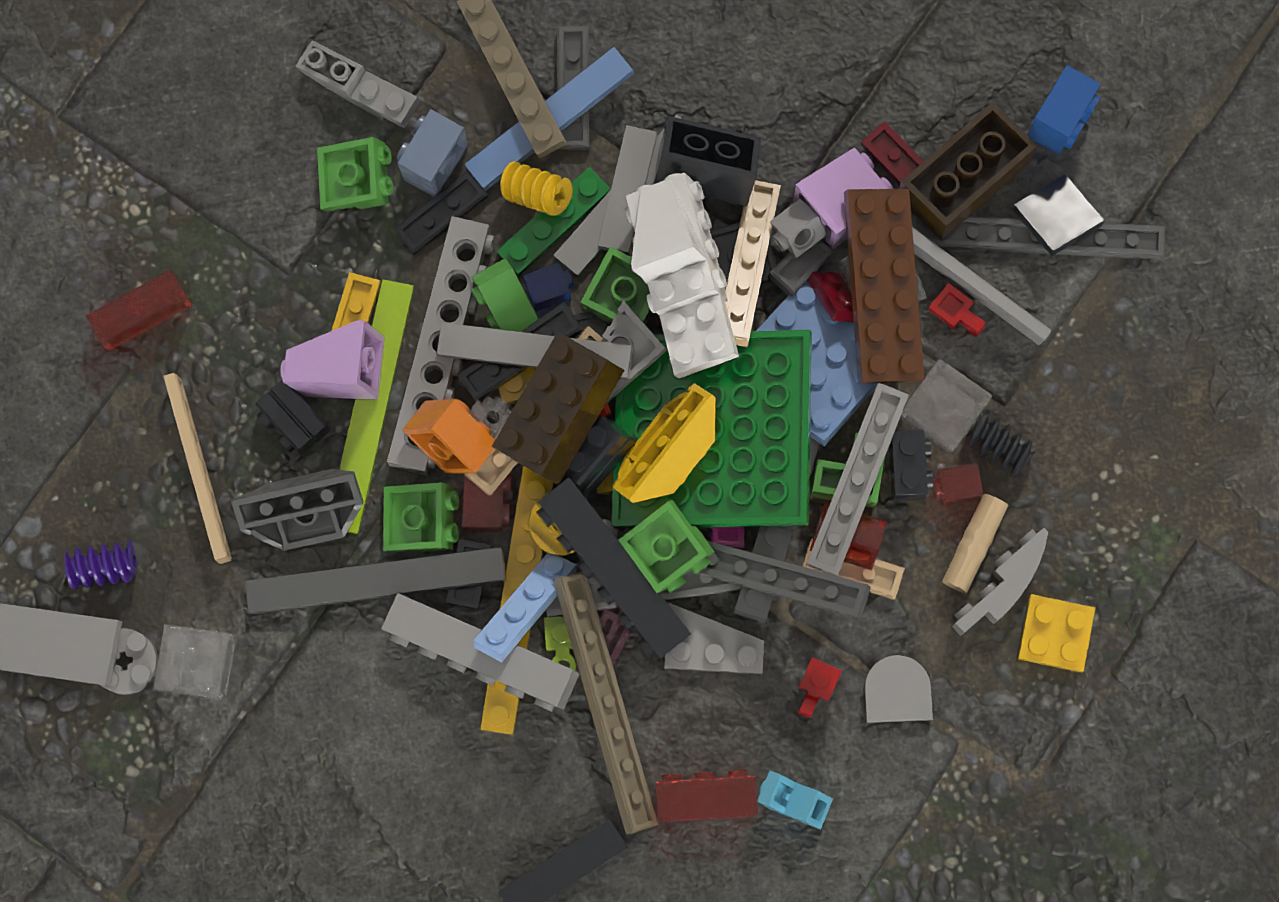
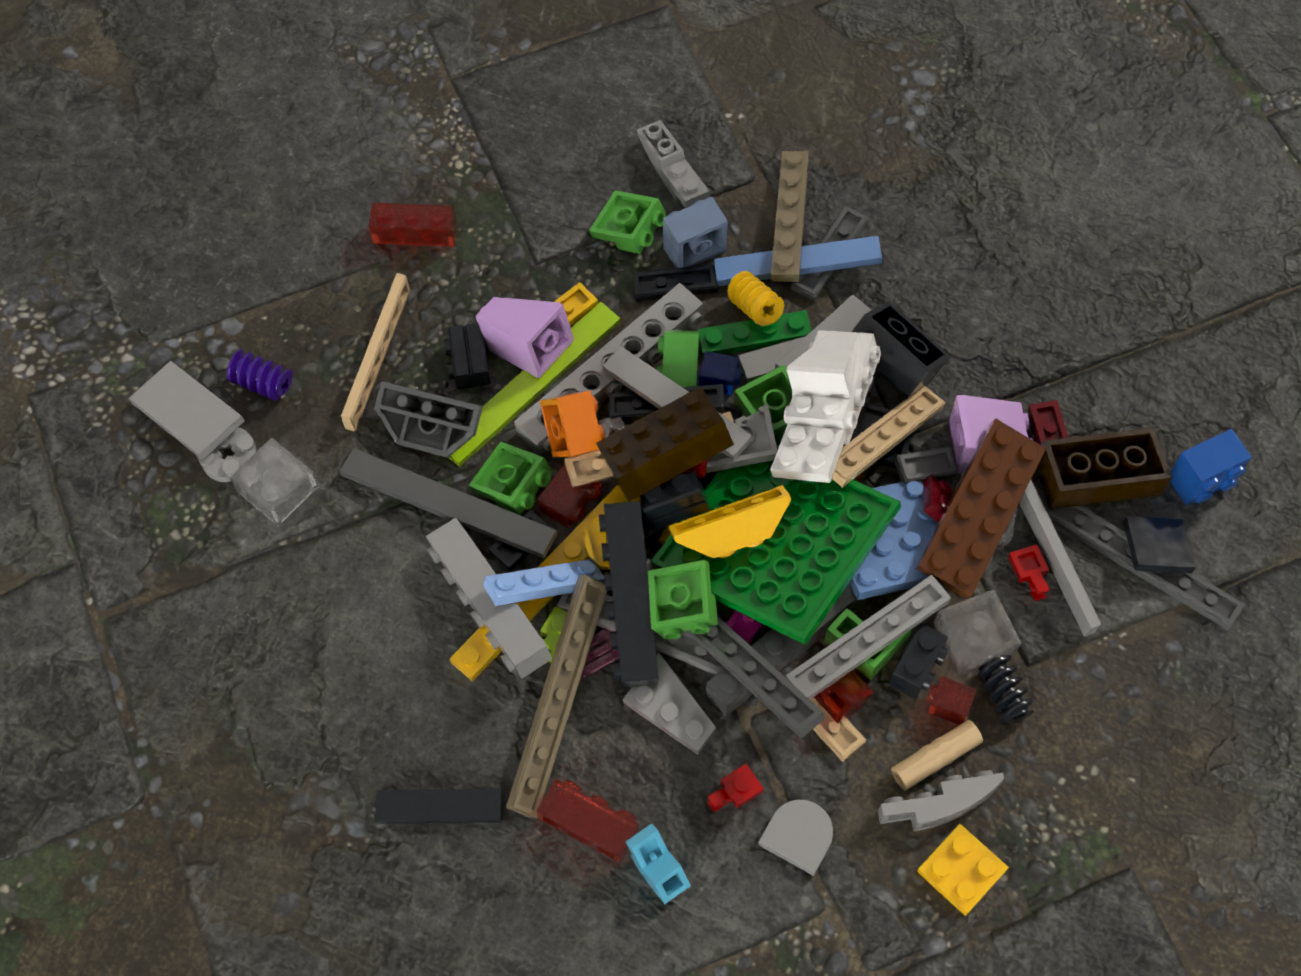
camera: 30 degrees right, 15 degrees down
(797, 228) = (943, 444): light grey brick -> none

